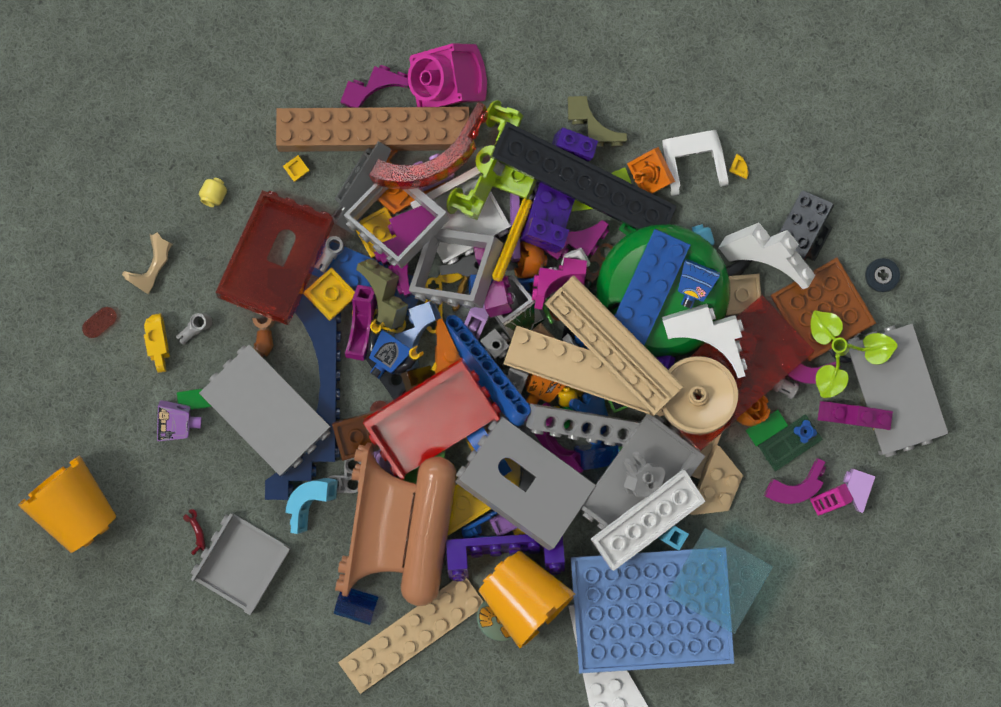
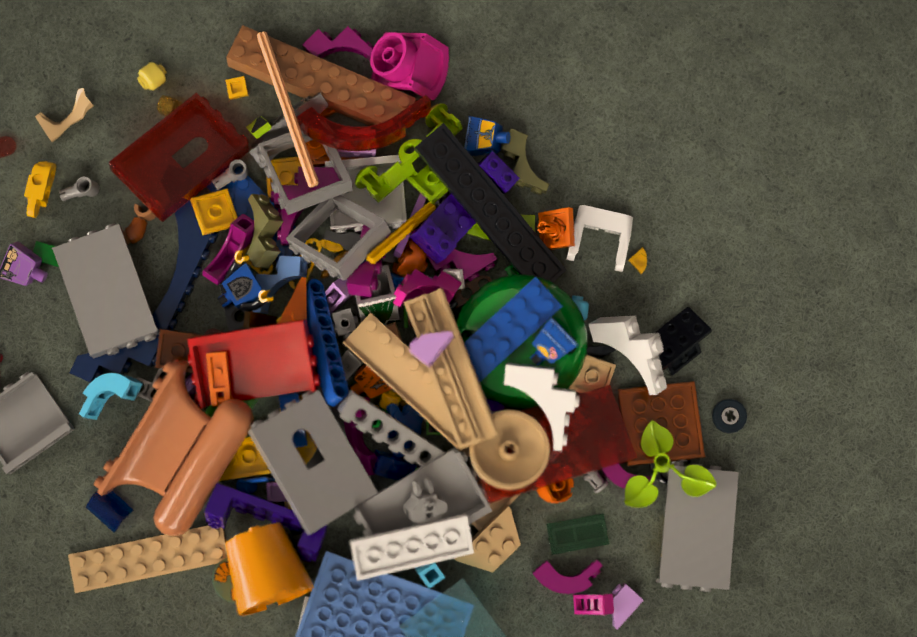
camera: 15 degrees right, 5 degrees down
(241, 213) = (167, 105): none -> clear yellow leg
(334, 197) = (258, 127): none -> lime tile
(356, 170) = (287, 109): none -> light nougat axle
(405, 444) = (218, 377): none -> orange plate
(547, 115) = (484, 136): none -> torso
(587, 334) = (430, 346): none -> lavender slope
(766, 429) = (561, 511): green tile -> none
(805, 426) = (595, 534): blue plate -> none
(855, 415) = (649, 534): magenta arch -> none

